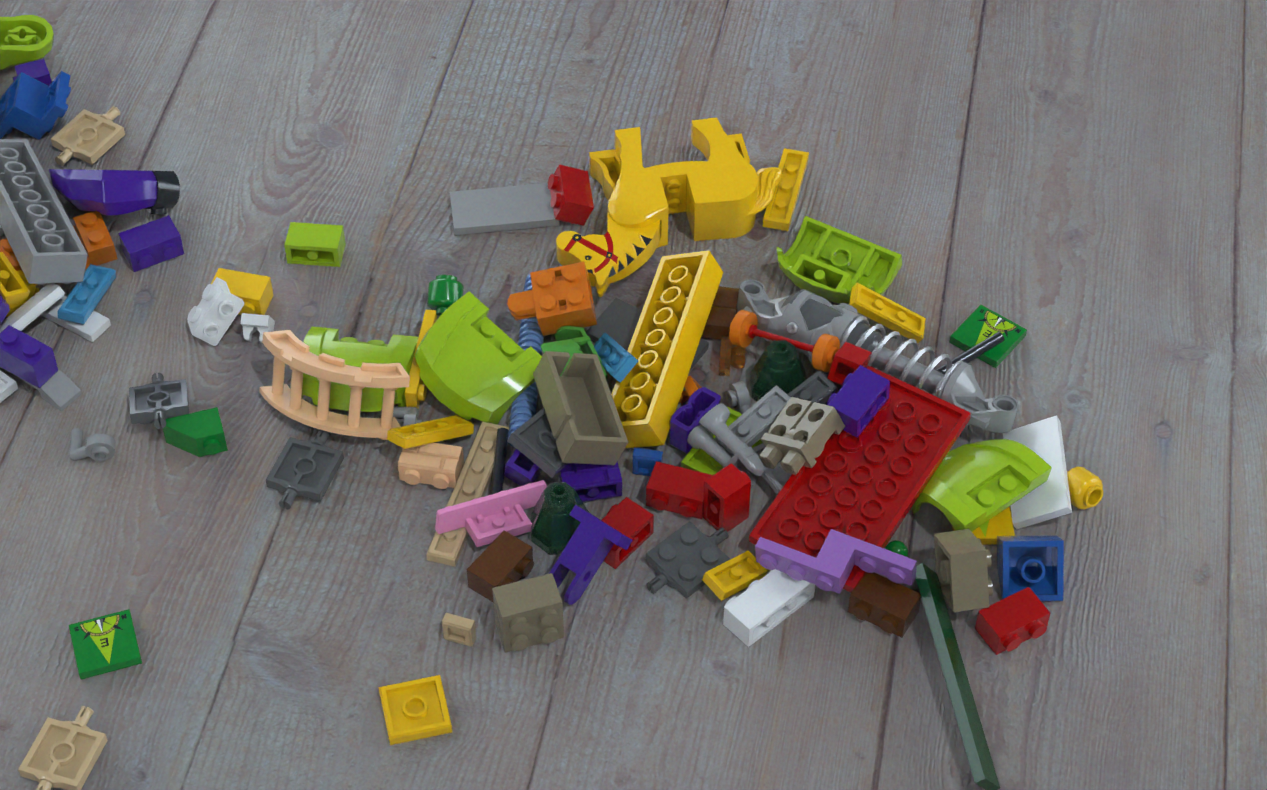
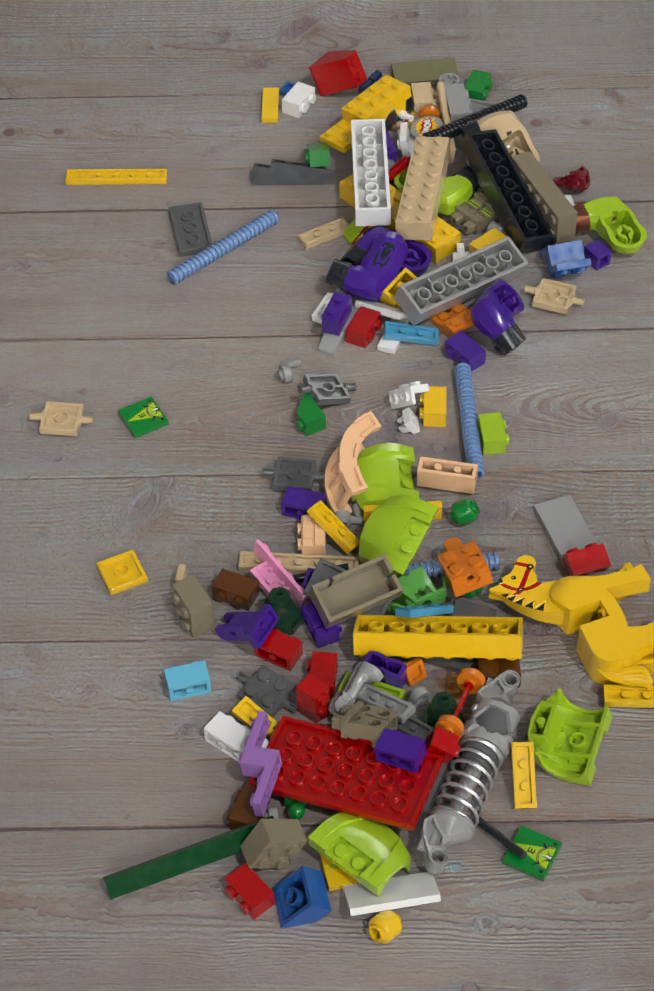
camera: 80 degrees right, 0 degrees up
(63, 342) = (363, 327): none -> red brick
(279, 263) = (468, 416): none -> medium blue piece
(367, 465) = (298, 501): none -> dark purple brick
(378, 298) = (447, 475): none -> light nougat brick
(645, 460) = (343, 663): blue tile -> none
(649, 645) = (187, 680): none -> medium azure brick

